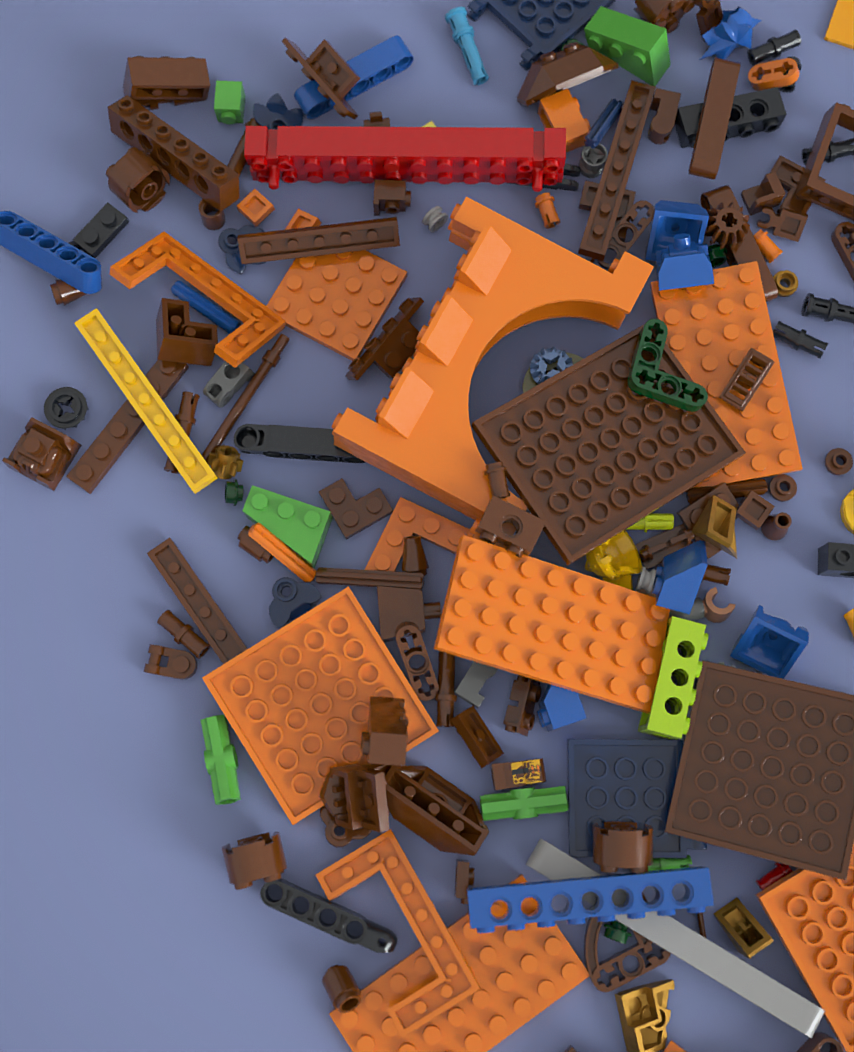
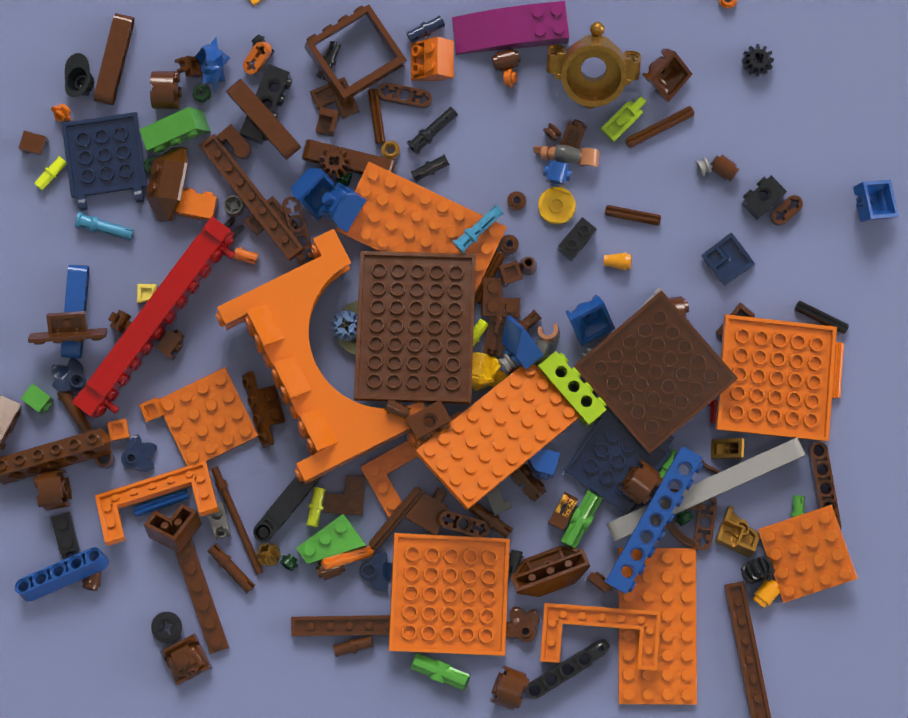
camera: 55 degrees left, 5 degrees up
(146, 401) = (199, 576): yellow plate -> none
(180, 663) = (369, 659): reddish brown plate -> none
(318, 240) = (171, 407): reddish brown plate -> none
(318, 478) = (315, 507): none -> neon yellow pin
(341, 988) = (610, 687): reddish brown brick -> none
(357, 796) = (514, 607): reddish brown piece -> none
(386, 732) = (492, 568): reddish brown wedge -> none
(414, 556) = (401, 483): reddish brown cone -> none
(419, 755) = (515, 560): none -> black pin
(435, 218) = (203, 326): light grey bush -> none
(477, 736) = (527, 519): reddish brown plate -> none
(603, 123) = (216, 183): dark blue axle -> none
(650, 372) = (392, 274): dark green beam -> none
(690, 42) = (201, 98): none -> dark green plate
(718, 525) = (505, 300): pearl gold slope -> none
(760, 360) = (425, 217): reddish brown slope -> none
(764, 432) = (471, 235): none -> dark azure pin
(767, 246) = (360, 143): orange pin -> none
(774, 47) = (239, 42): black pin -> none
(787, 224) = (355, 122): reddish brown plate -> none
(807, 245) = (376, 116): none -> reddish brown axle

